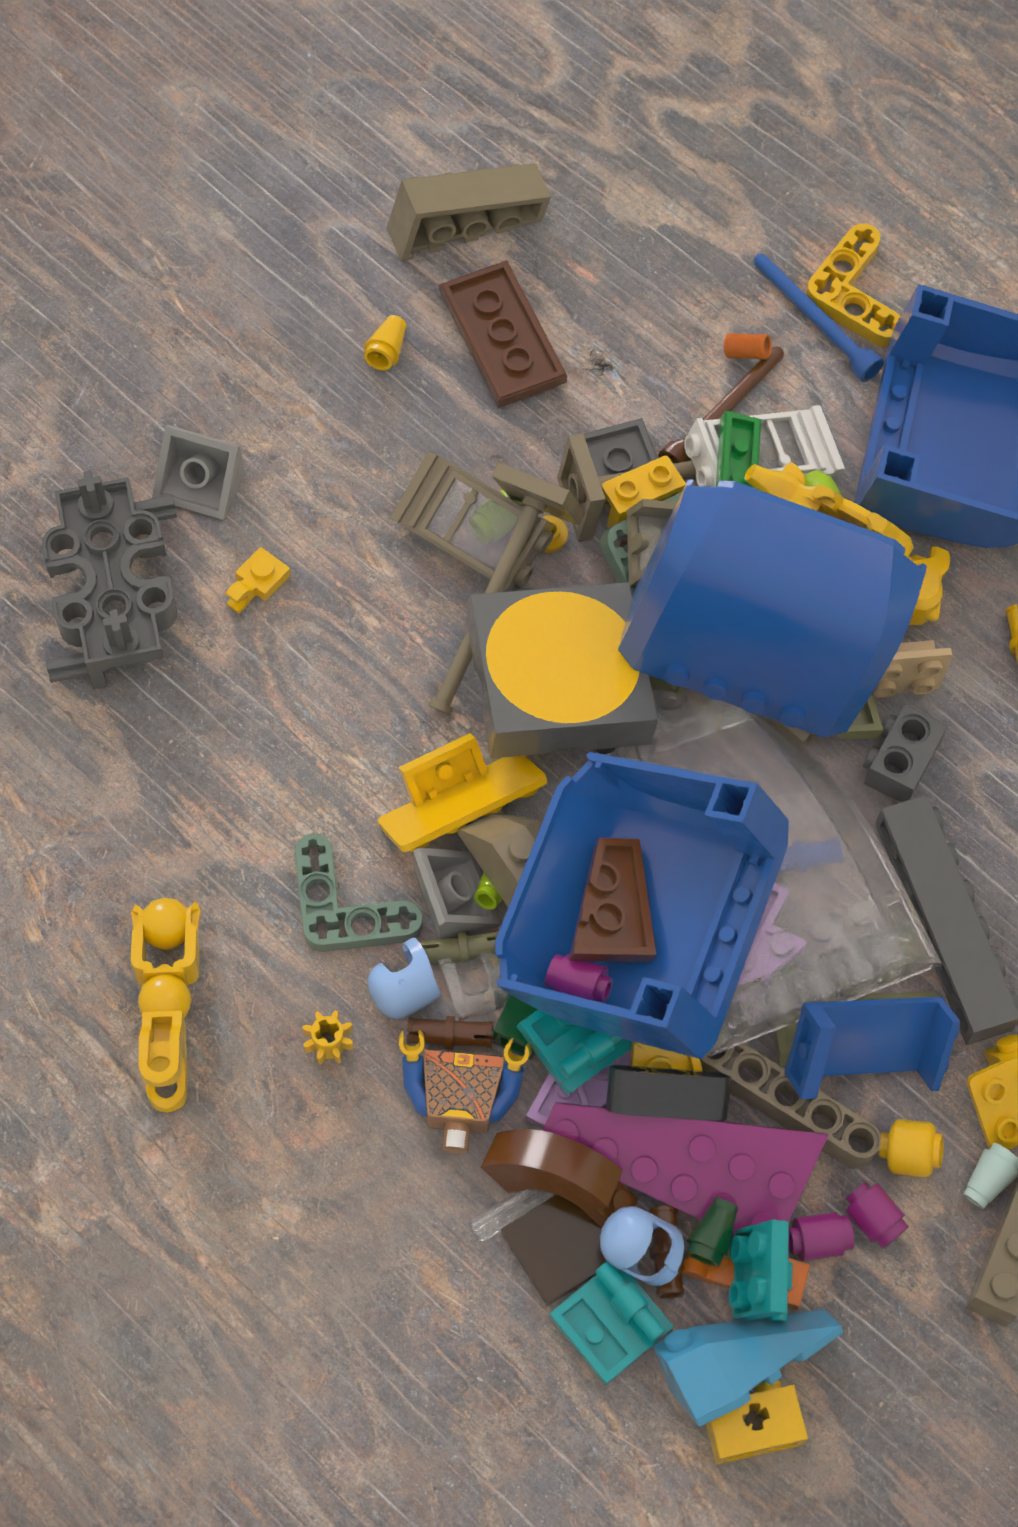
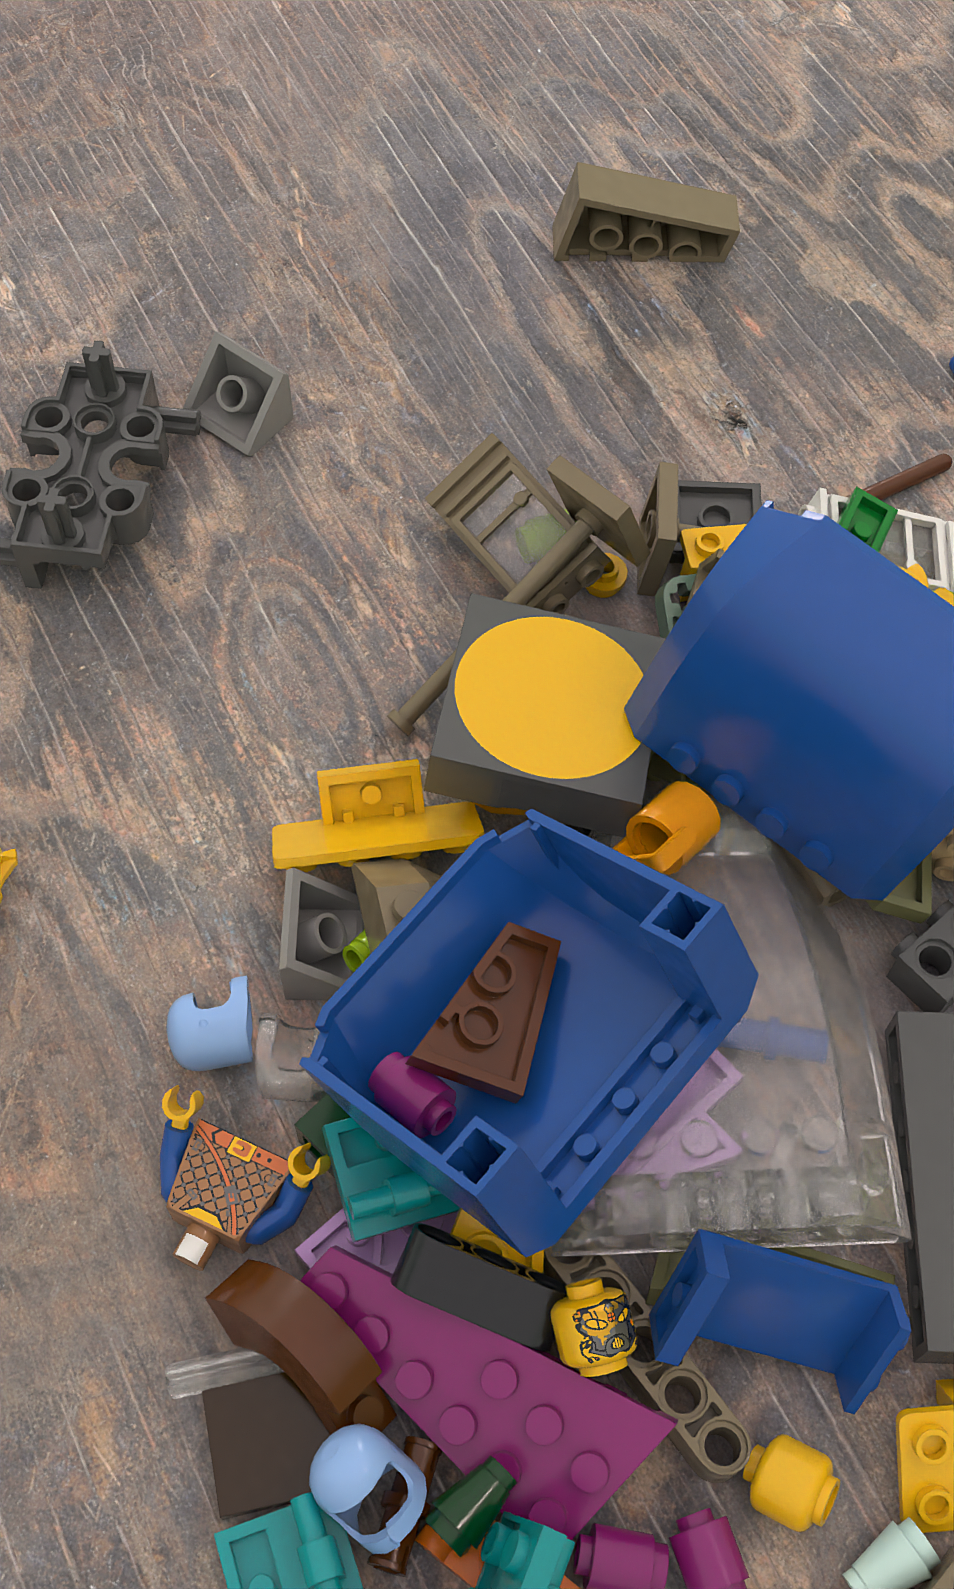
camera: 20 degrees right, 5 degrees down
(257, 576) = (255, 522): yellow plate -> none
(329, 913) = (171, 913): sand green beam -> none
(335, 1029) = (83, 1057): yellow gear -> none
(385, 343) = (499, 330): yellow cone -> none
(450, 1032) = (248, 1109): reddish brown pin -> none
(459, 948) = (293, 1007): olive pin -> none
(503, 333) = (635, 356): reddish brown plate -> none
(681, 731) = (671, 828): none -> light orange piece
(749, 346) = (915, 436): orange piece -> none
(754, 1092) = (594, 1328): none -> head

